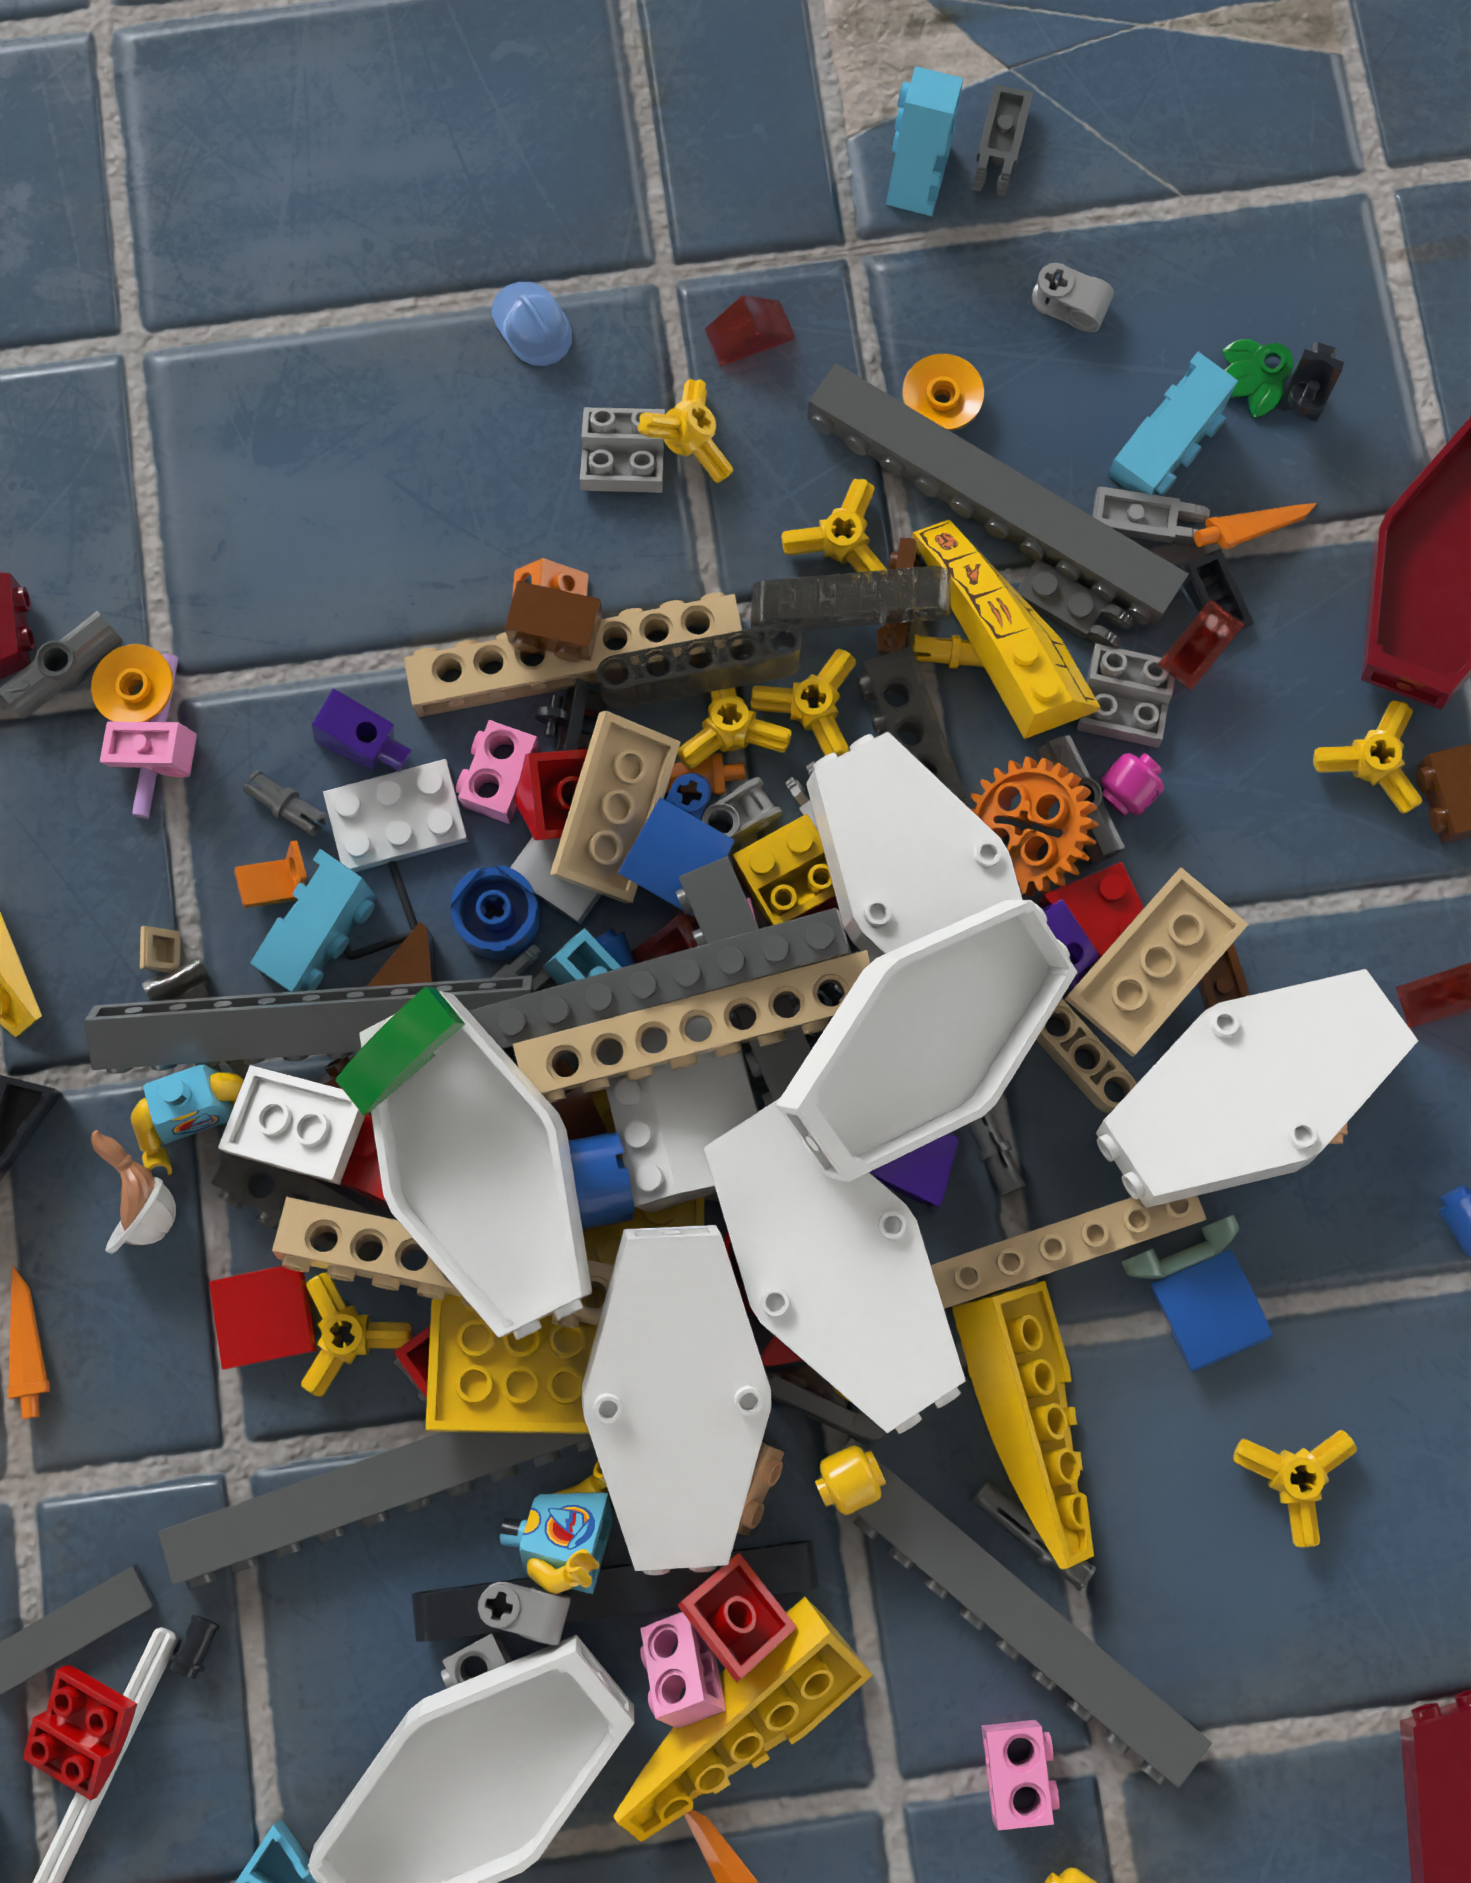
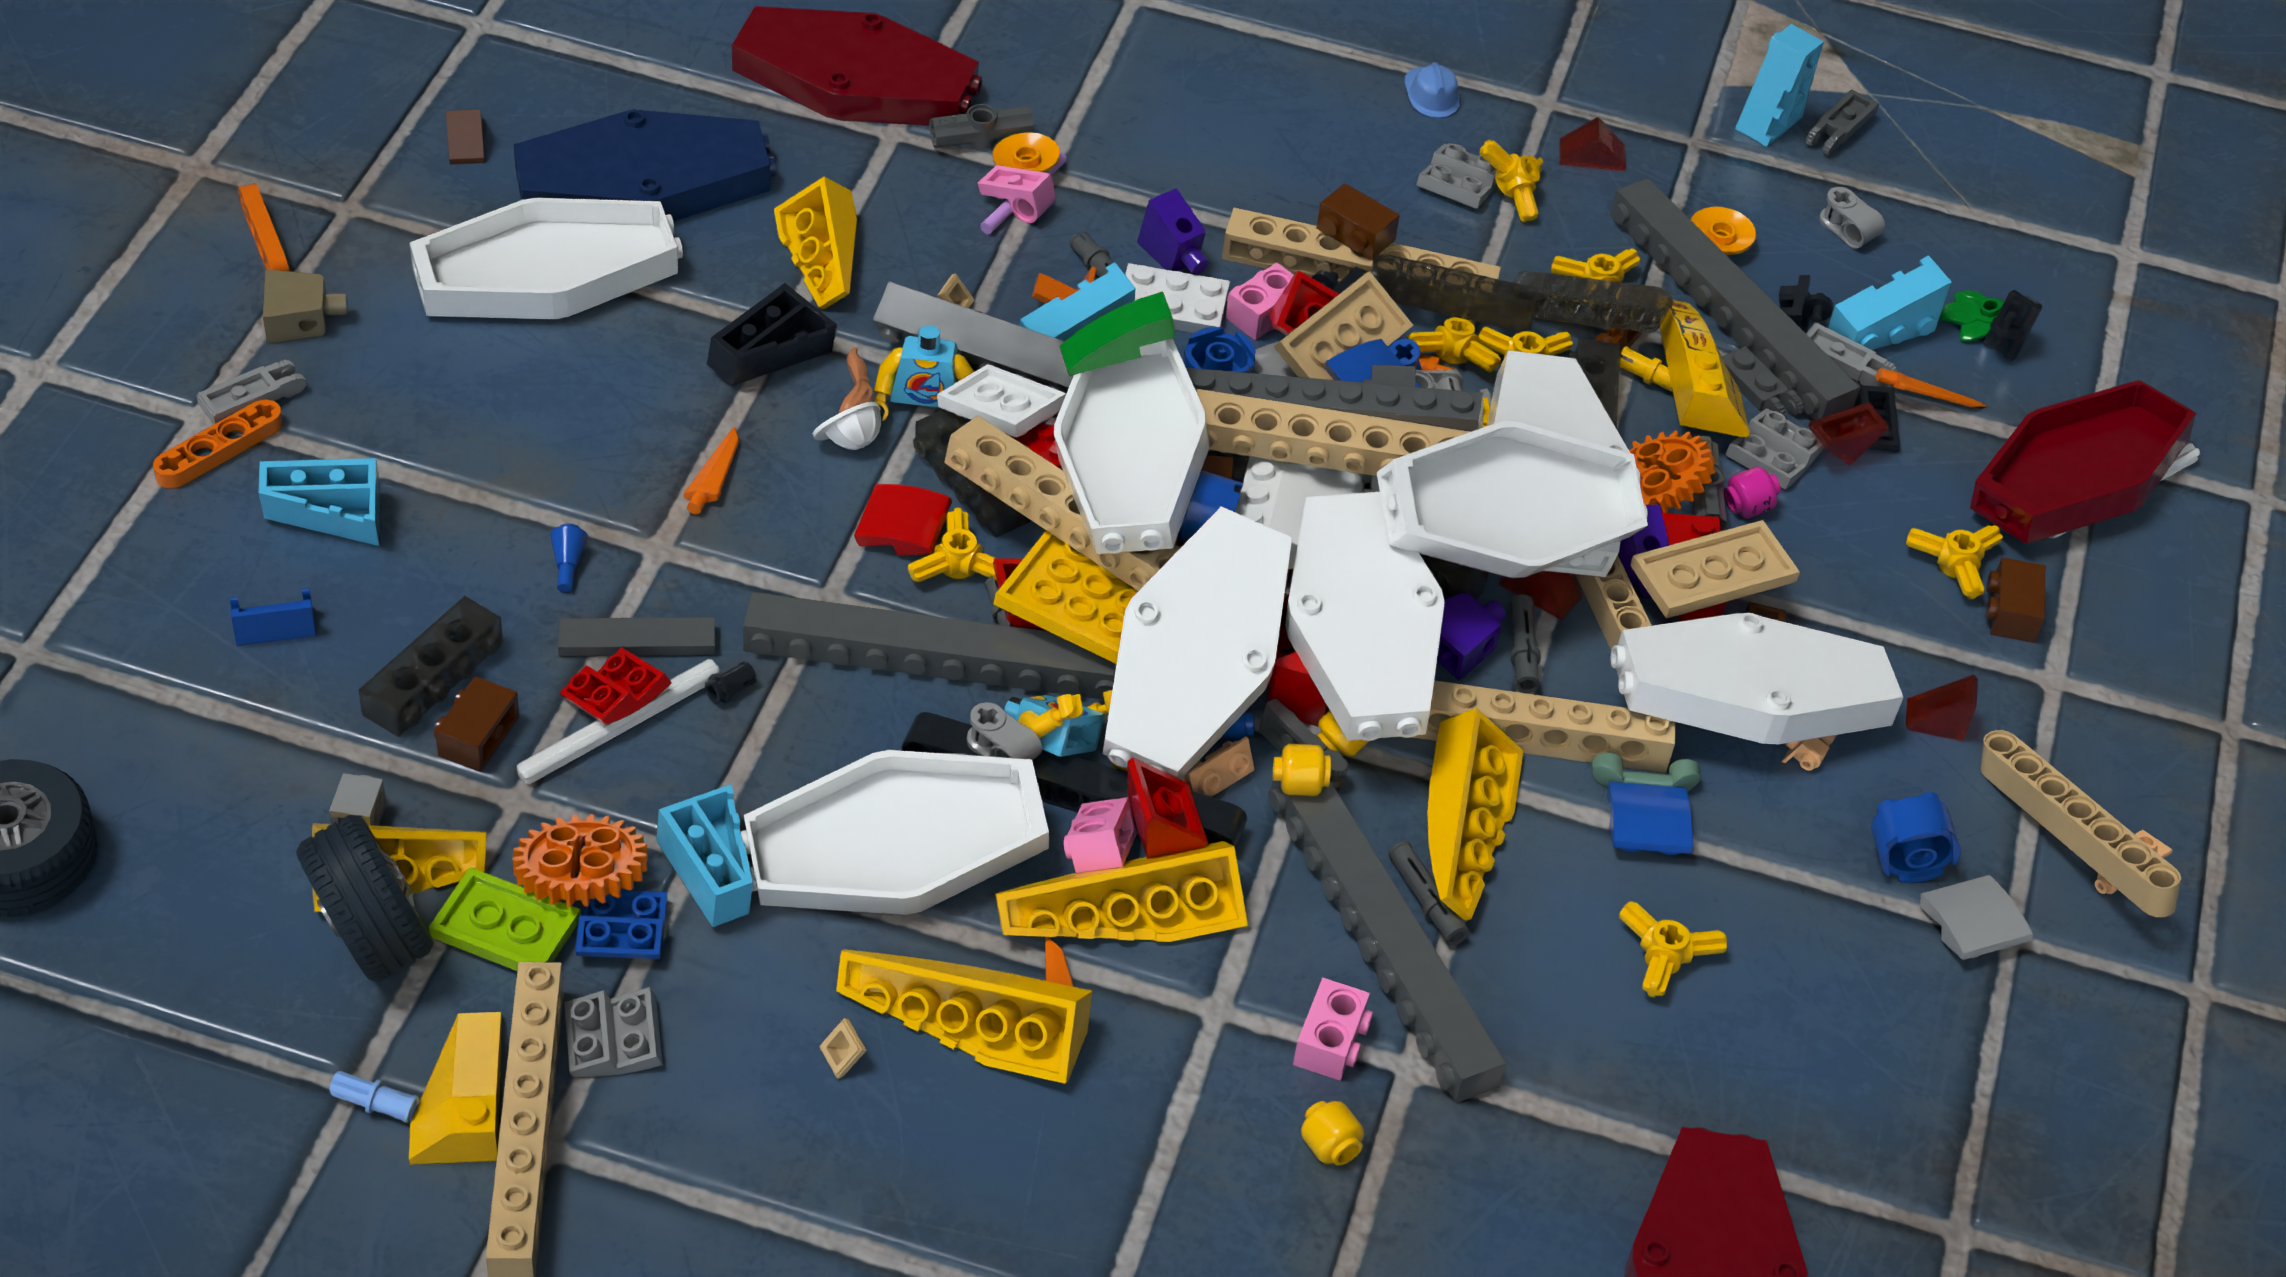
camera: 20 degrees right, 30 degrees down
(1066, 453) = (1802, 306): none -> black hips

